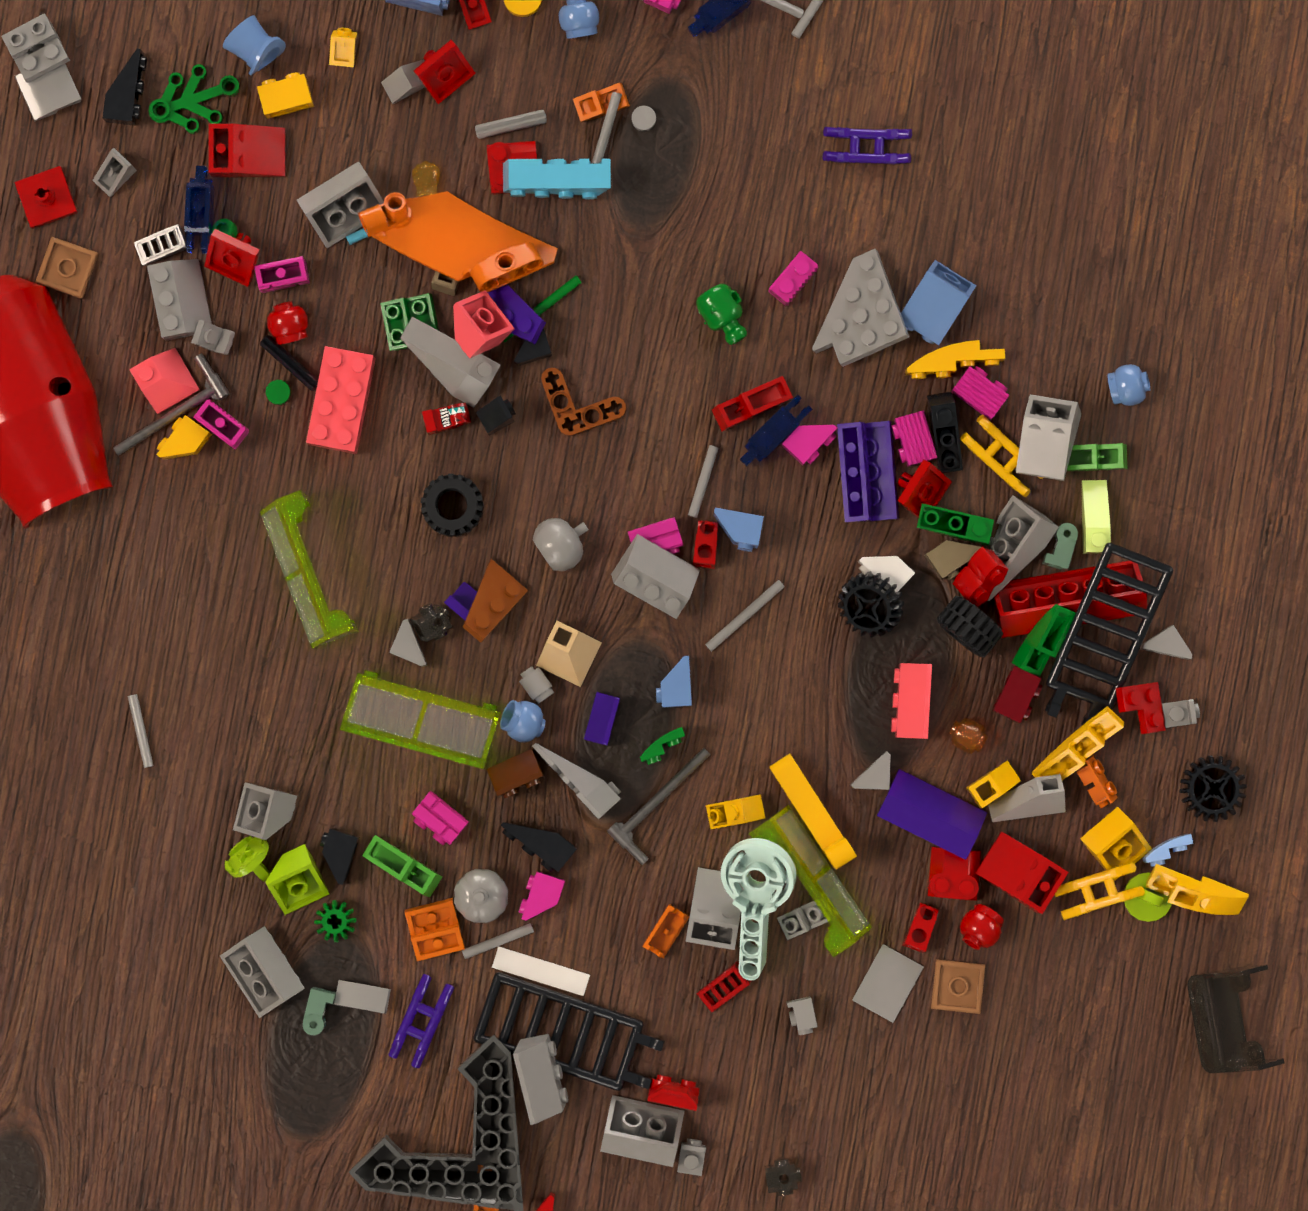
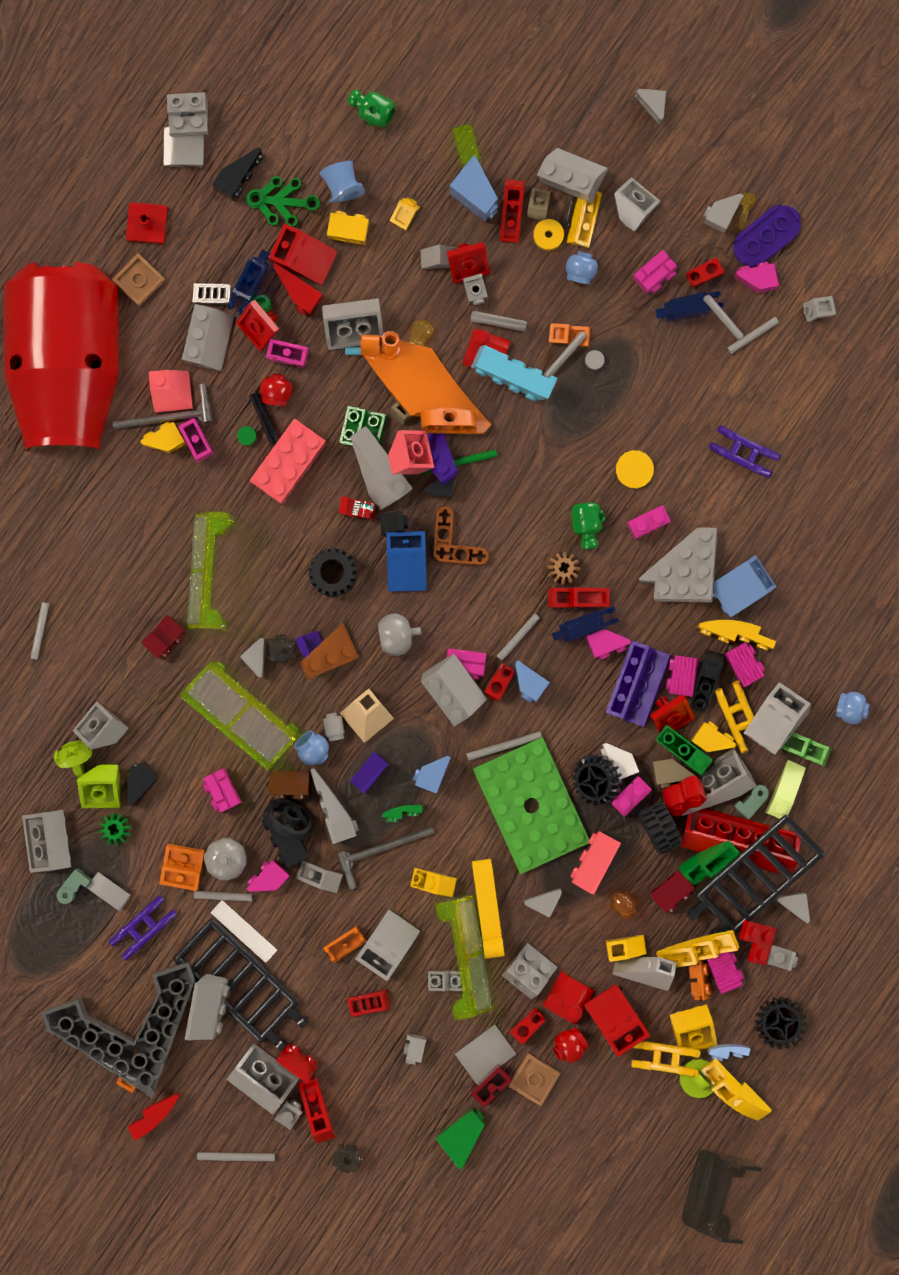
camera: 25 degrees right, 0 degrees up
(113, 173) = (202, 227): light grey slope -> none
(213, 337) = (218, 376): light grey bracket -> none
(266, 197) = (302, 294): none -> red slope
(290, 671) = (164, 637): none -> dark red brick
(402, 866) = (179, 812): bright green slope -> none
(470, 109) = (475, 281): none -> light grey brick
(532, 452) = (406, 561): none -> blue slope
(533, 814) = (289, 818): none -> black wheel
(599, 866) = (319, 876): none -> light grey slope
(711, 377) = (569, 571): none -> medium nougat gear
(721, 1139) = (316, 1111): none -> red slope
(748, 224) = (634, 469): none -> yellow tile
(757, 897) = (419, 952): light aqua beam -> none
(770, 660) = (537, 835): none -> bright green plate
(894, 863) = (529, 971): none -> light grey brick
(904, 1090) = (461, 1136): none -> green slope
(905, 1024) = (484, 1090): none -> dark red brick
(918, 605) = (630, 796): none -> dark pink brick
(932, 814) = (572, 948): dark purple slope -> none
(981, 497) = (710, 739): none -> yellow slope
(1121, 759) = (725, 972): none -> dark pink brick

